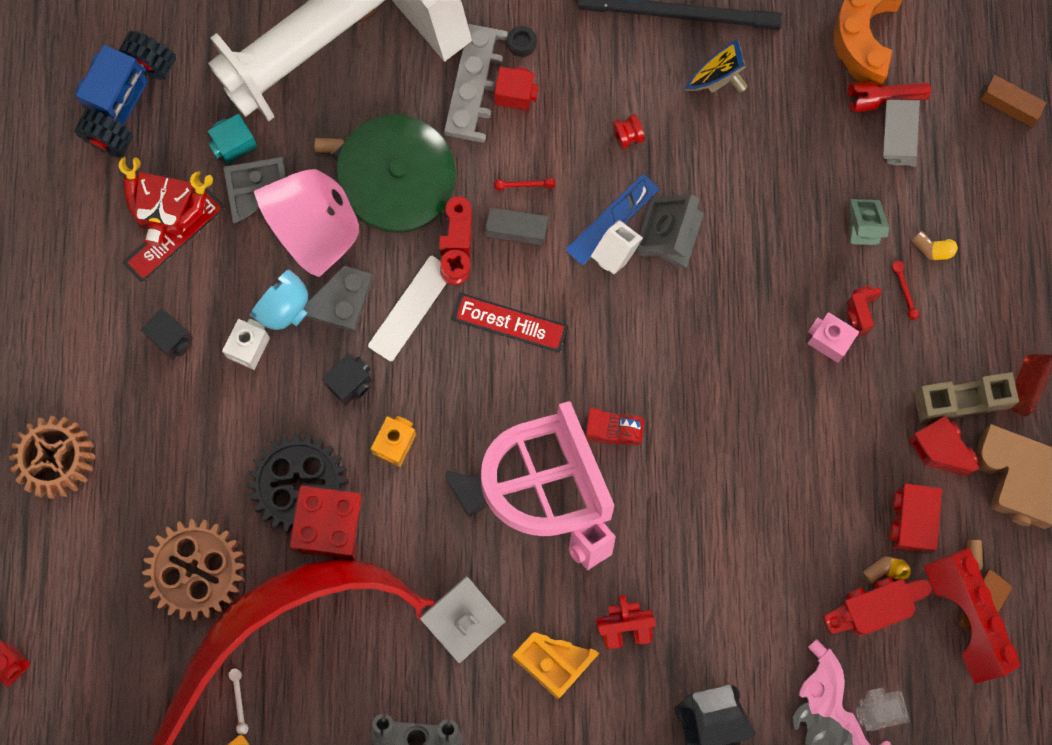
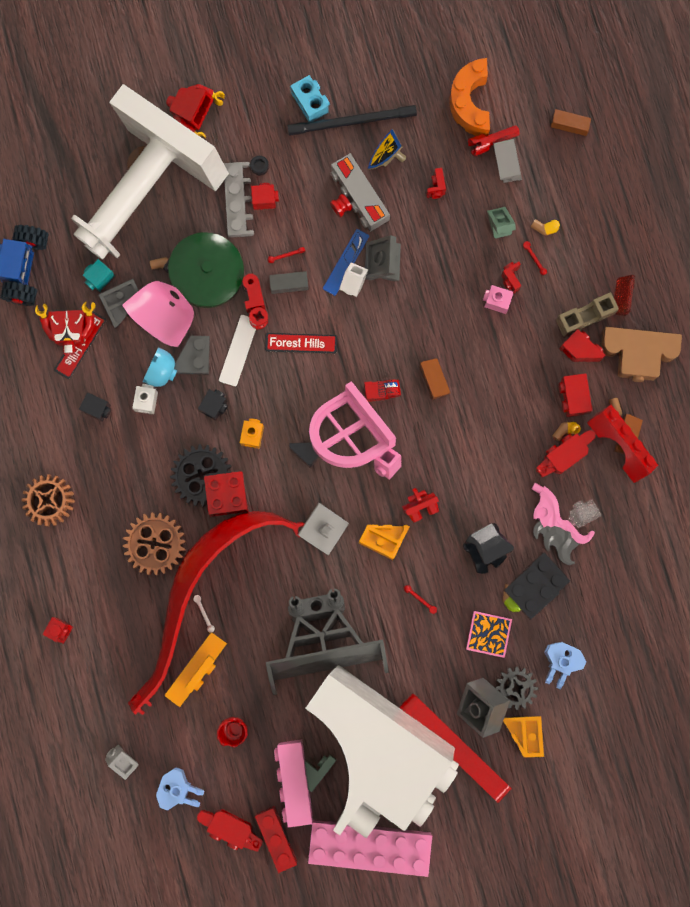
camera: 15 degrees left, 5 degrees up
(662, 120) = (360, 192): none -> light grey brick
(701, 432) = (434, 378): none -> dark orange slope
(785, 140) = (438, 185): none -> red bracket

